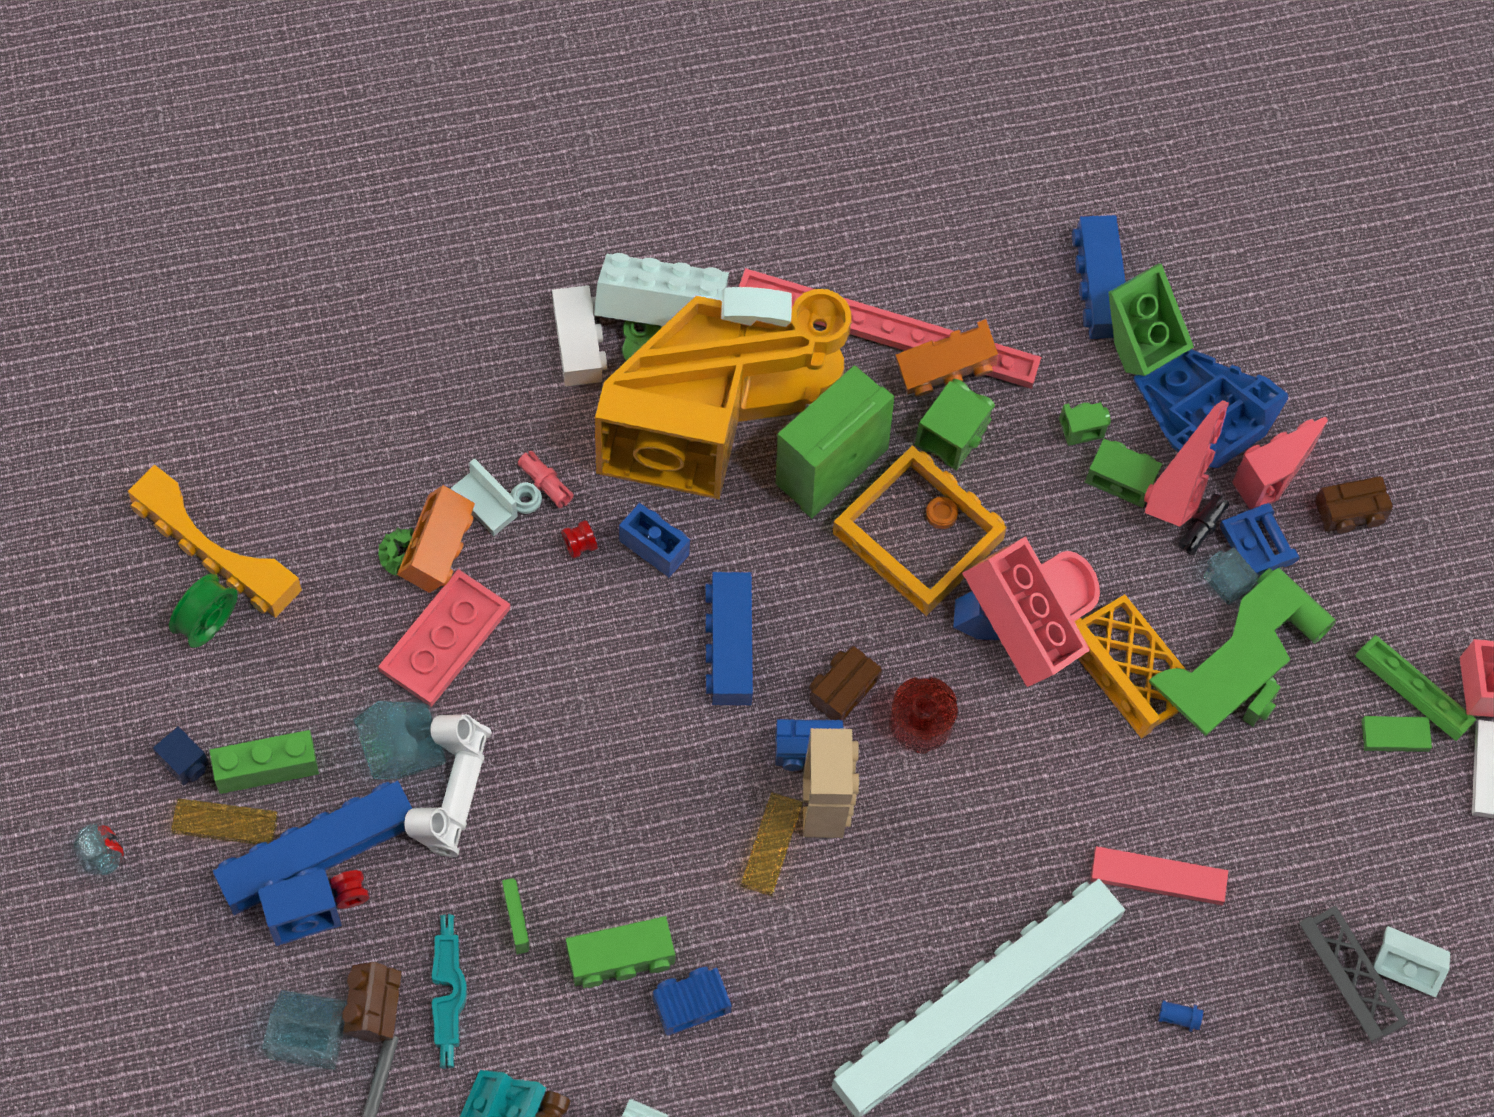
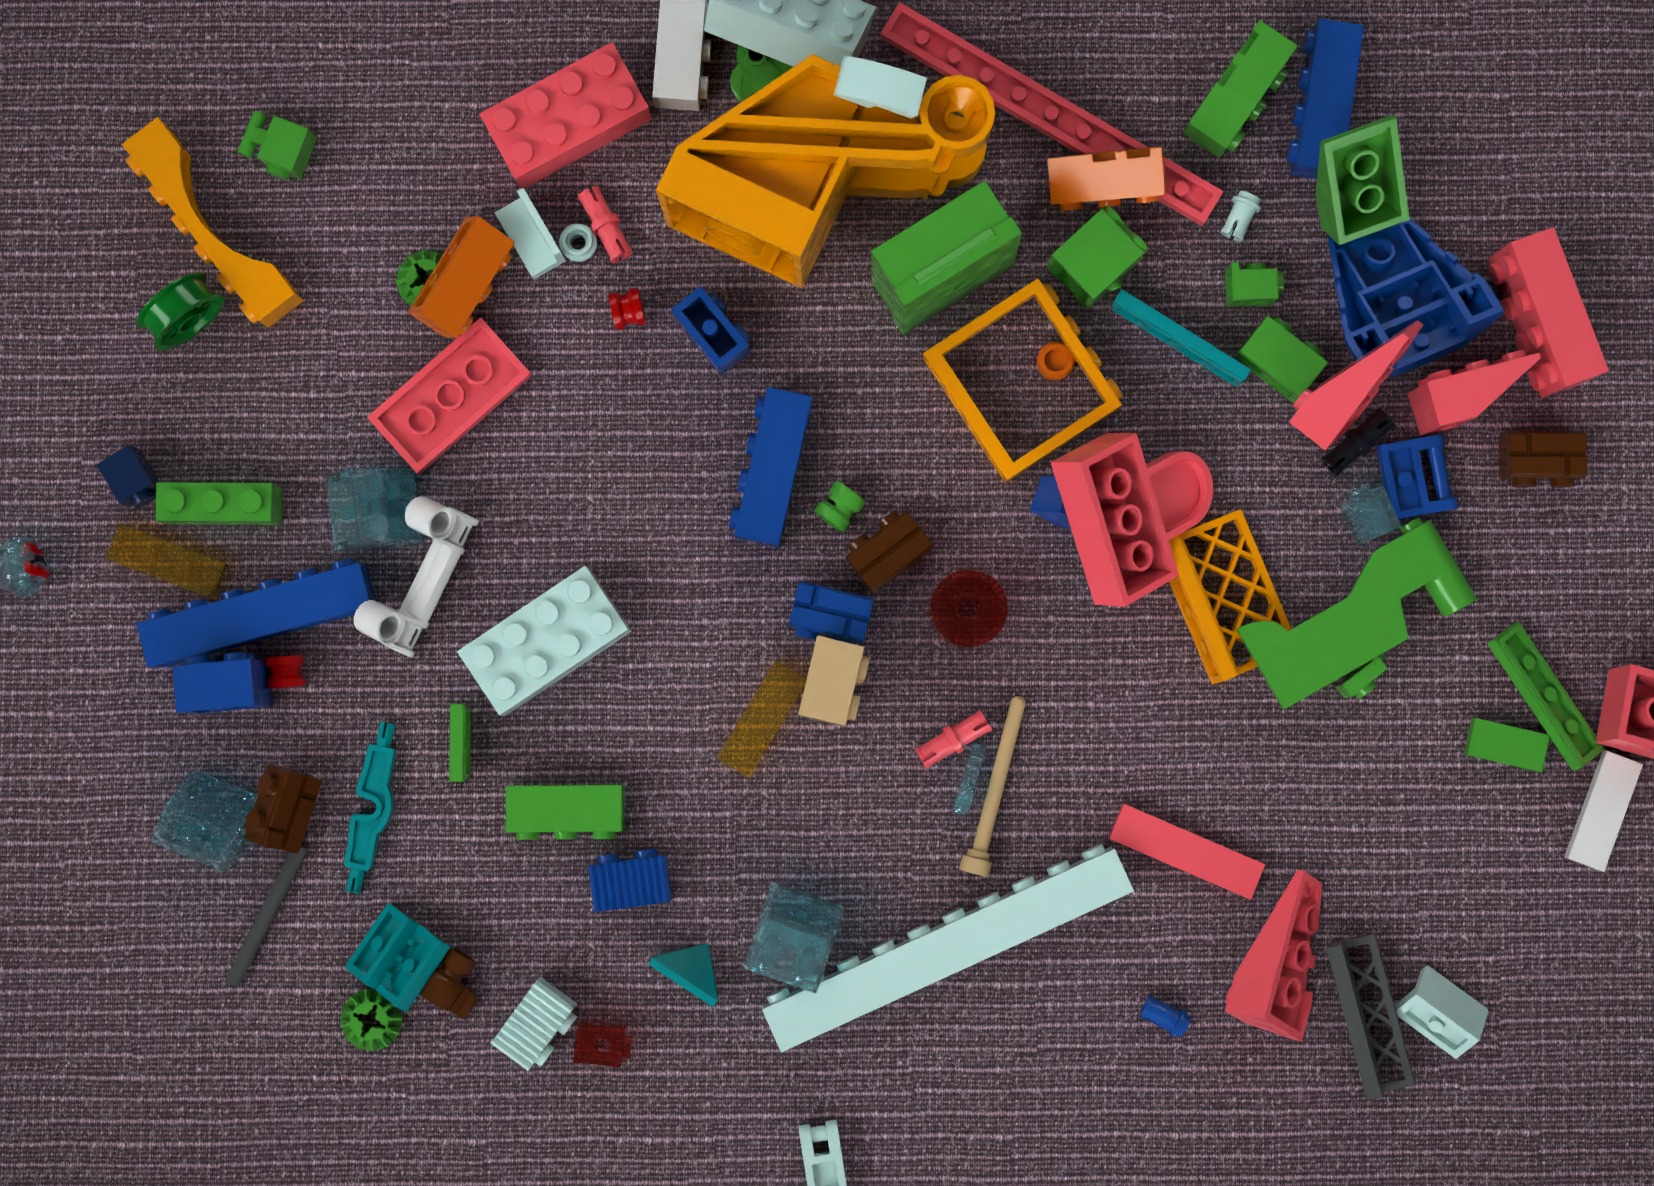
camera: 20 degrees right, 20 degrees up
(262, 472) = (283, 147): none -> bright green brick
(495, 402) = (566, 116): none -> coral brick
(570, 815) = (544, 641): none -> light aqua brick
(760, 1066) = (690, 969): none -> teal slope
(794, 657) = (839, 506): none -> bright green wheel
(846, 1010) = (793, 937): none -> clear light blue slope
(938, 824) = (953, 739): none -> coral pin
(961, 856) = (967, 788): none -> clear light blue bar
(984, 921) = (977, 858): none -> tan piece
(1034, 280) = (1241, 90): none -> bright green wedge
(1038, 473) = (1179, 338): none -> teal tile
(1060, 372) = (1241, 215): none -> light aqua pin
(1261, 960) = (1273, 976): none -> coral wedge
(1323, 388) = (1547, 312): none -> coral brick

